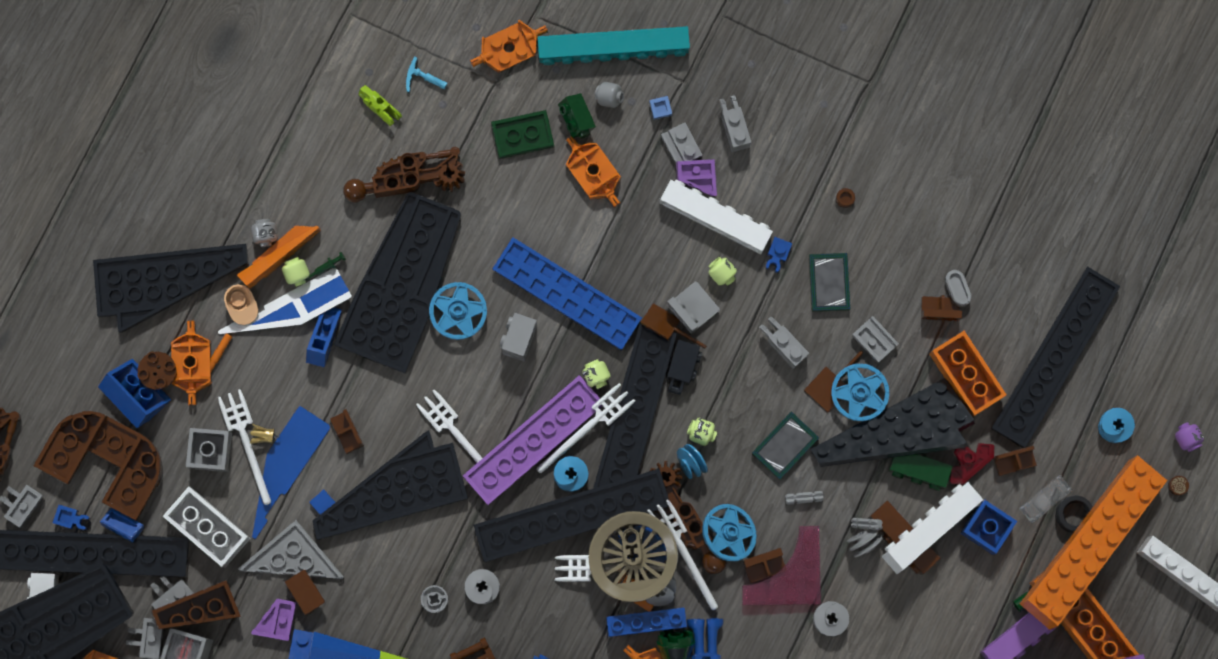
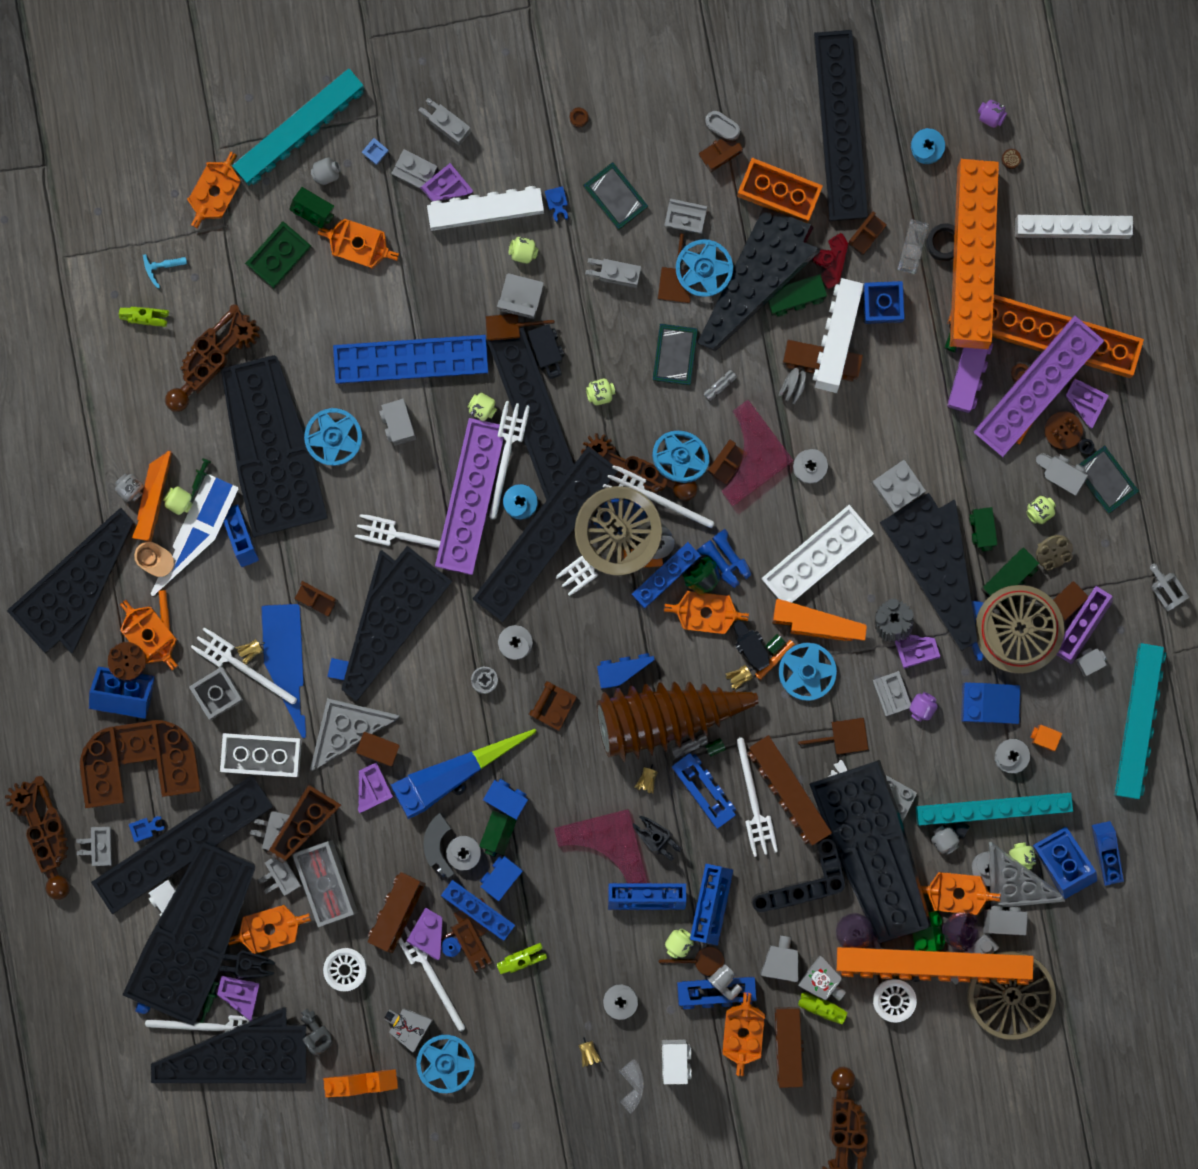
camera: 30 degrees left, 5 degrees up
(122, 524) = (191, 803): blue tile -> none
(691, 460) = (609, 421): dark azure piece -> none
(862, 523) = (784, 370): light grey axle -> none

